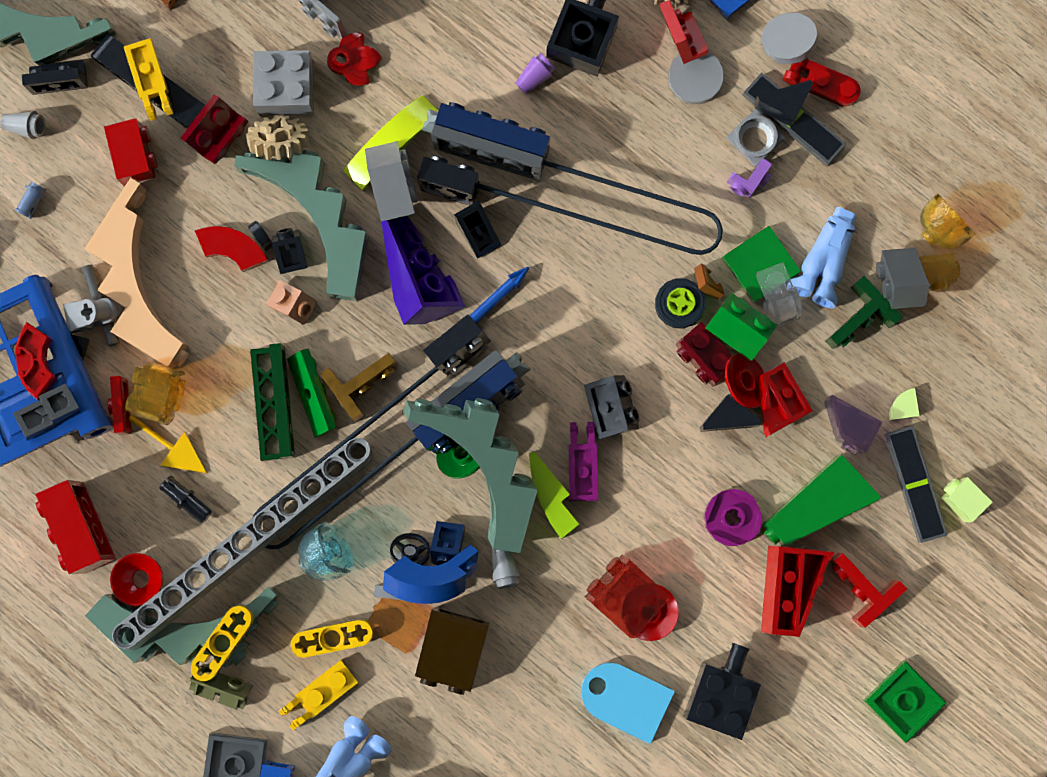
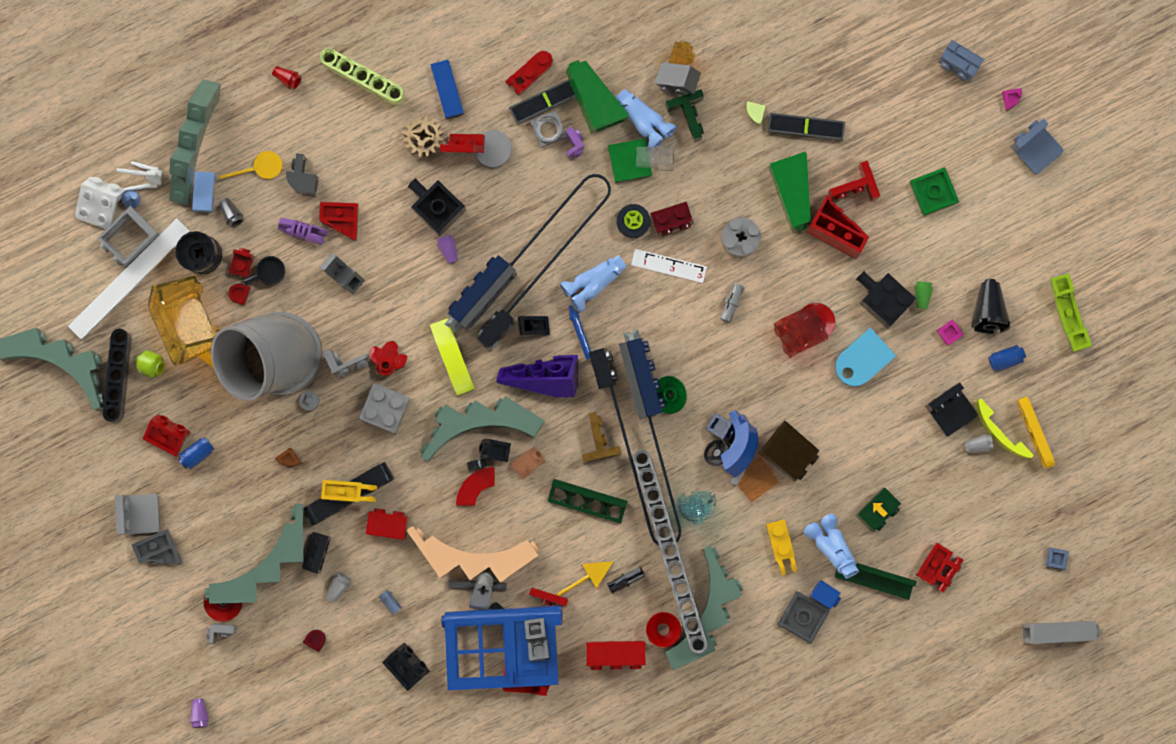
camera: 70 degrees left, 0 degrees up
(32, 361) = (499, 637): red tile -> none
(156, 392) = (552, 568): clear yellow brick -> none
(214, 130) = (397, 465): dark red bracket -> none
(215, 665) = (729, 605): yellow beam -> none
(231, 689) = (757, 599): olive hinge -> none
(277, 137) = (420, 426): tan gear -> none
(312, 392) = (592, 473): green tile -> none
(313, 649) = (759, 510): yellow beam -> none
(391, 180) = (481, 365): light grey brick -> none
(474, 430) = (709, 374): sand green arch -> none
(504, 569) = (752, 399): light grey cone -> none
(550, 495) = (720, 351): lime slope -> none
(573, 284) = (593, 281): none -> light blue piece
(583, 466) = (708, 324): magenta hinge -> none
(612, 406) = (680, 290): black bracket -> none
(626, 485) = (732, 302): none -> light grey pin
(640, 376) = (669, 265): none -> white sticker
(706, 283) = (627, 199): dark orange tile -> none
(725, 503) = (779, 257): magenta plate -> none
(729, 416) = (716, 220): black slope -> none
(731, 445) = (750, 233): none -> light grey brick
(741, 326) = (664, 189): green piece -> none
(742, 380) = (699, 201): red dish -> none
(753, 746) = (923, 294): none -> bright green cone
(780, 399) = (720, 185): red wing -> none
(785, 102) = (537, 101): black slope -> none
(789, 38) = (495, 80): light grey tile -> none
(823, 181) = (594, 98): none -> green slope
(851, 425) = (754, 149): clear purple slope -> none
(944, 225) = (654, 38): clear yellow cylinder -> none
(965, 499) = (828, 101): yellowish green brick -> none

